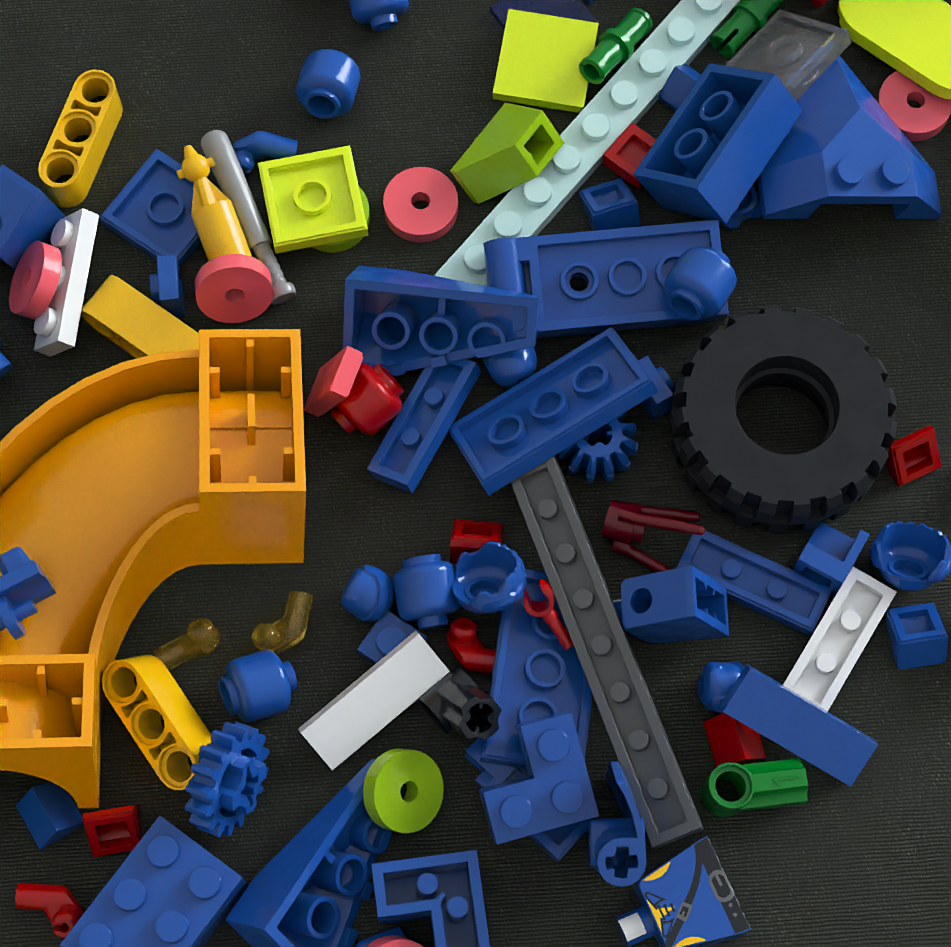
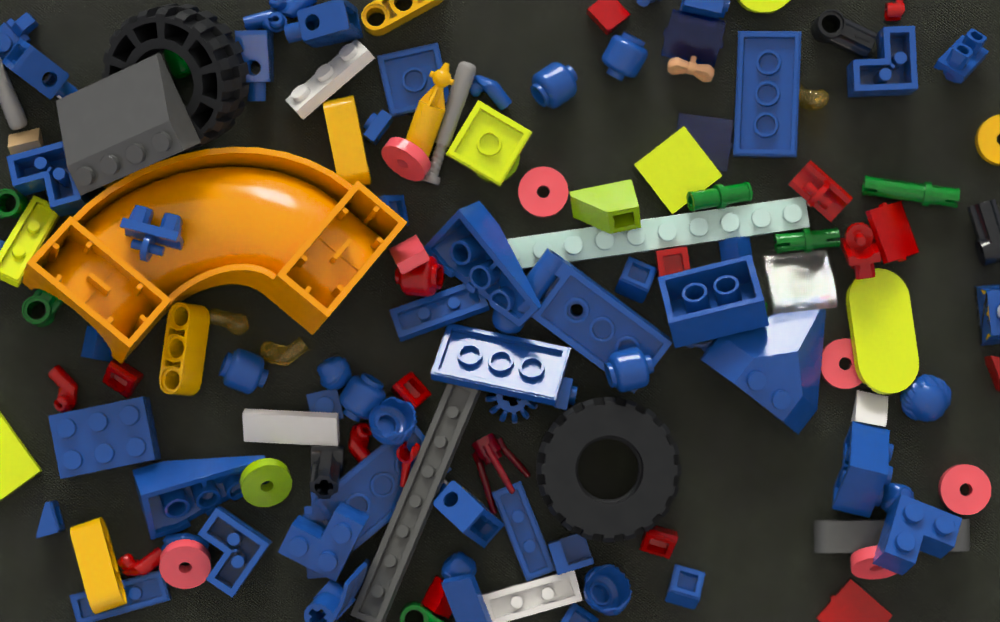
camera: 40 degrees right, 15 degrees up
(35, 280) = (313, 66): coral piece -> none
(227, 779) = (188, 406): blue gear -> none

